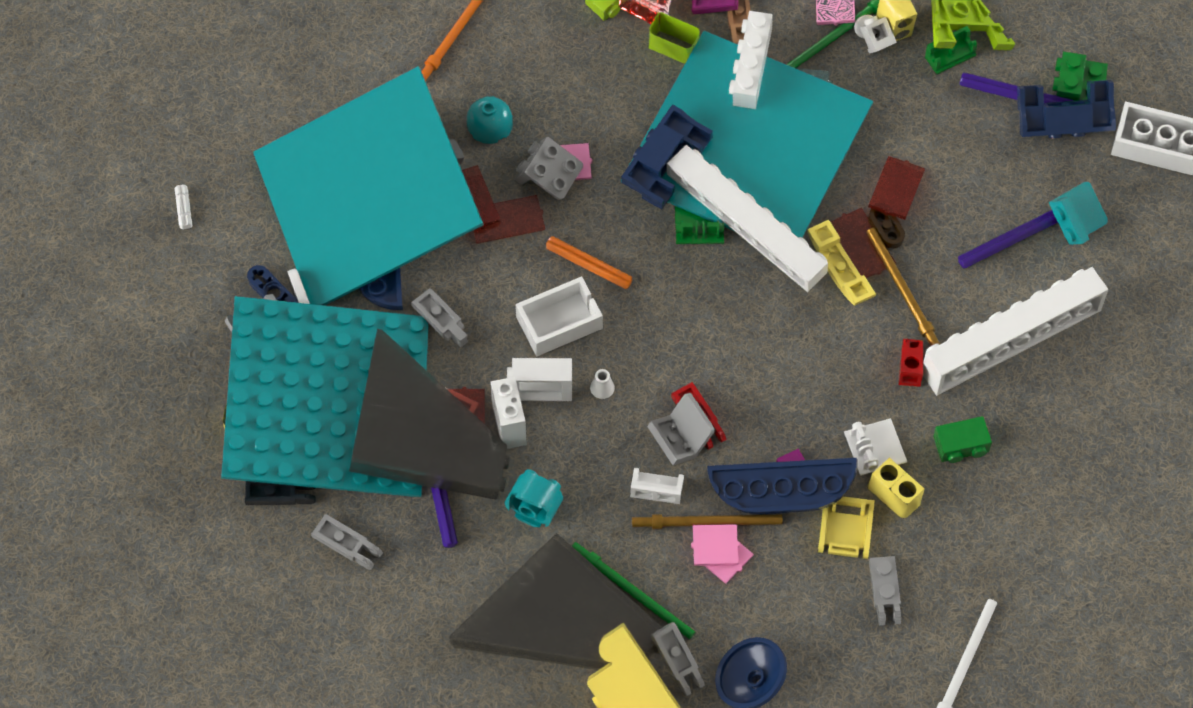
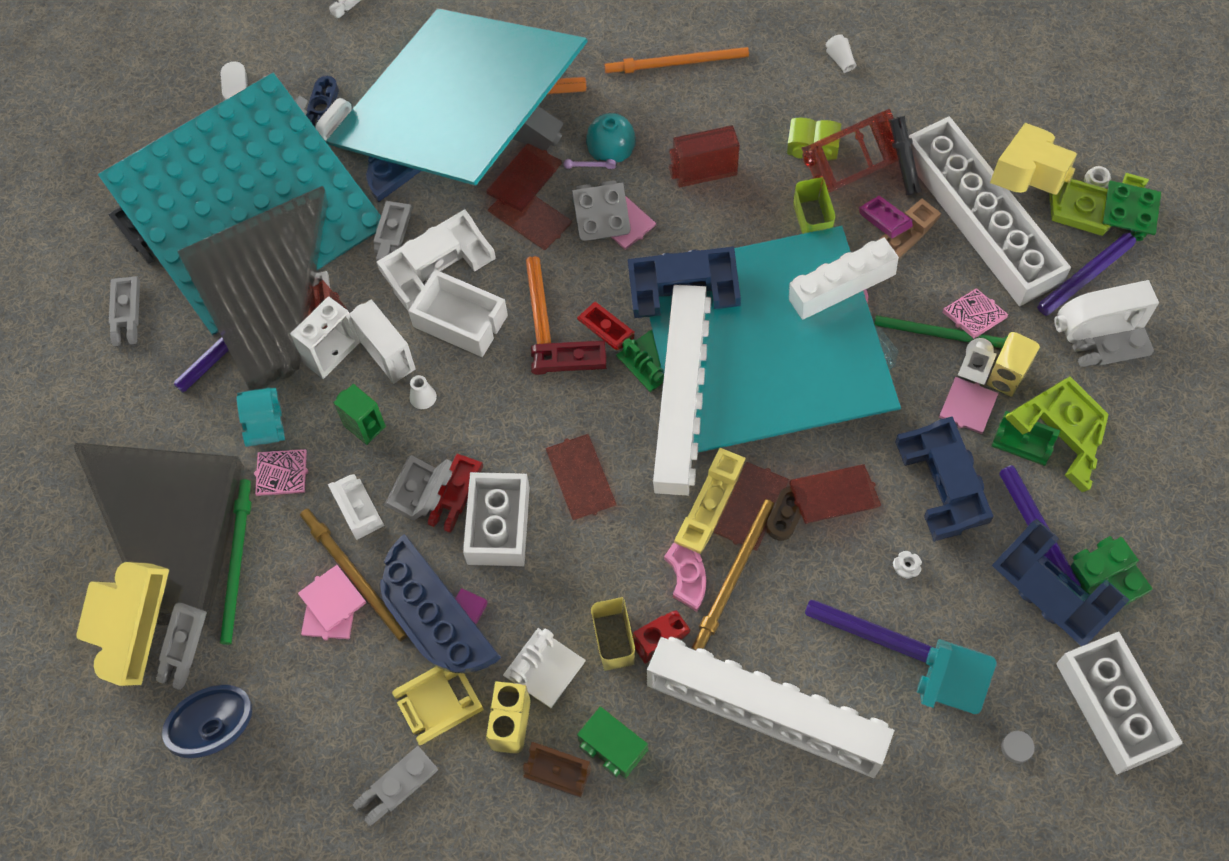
camera: 55 degrees right, 0 degrees up
(190, 339) = (233, 79): none -> white tile
(484, 162) = (609, 164): none -> lavender hinge
(491, 277) = (432, 251): none -> white bracket
(570, 70) = (704, 156): none -> clear red brick
(583, 519) = (281, 472): none -> bright pink piece
(590, 432) = (359, 413): none -> green brick
(651, 231) = (606, 325): none -> red slope
(652, 272) = (568, 356): none -> dark red plate
(747, 399) = (496, 519): none -> white brick
(751, 331) = (580, 477): none -> clear red piece
(880, 315) = (690, 575): none -> bright pink tile
(895, 376) = (608, 608): none -> light yellow piece
(897, 64) = (969, 405): none -> bright pink piece
(944, 111) = (953, 476): none -> dark blue bracket
(953, 484) = (556, 769): none -> reddish brown hinge
(977, 189) = (904, 571): none -> white plate
(1145, 216) = (1017, 747): none -> light grey tile

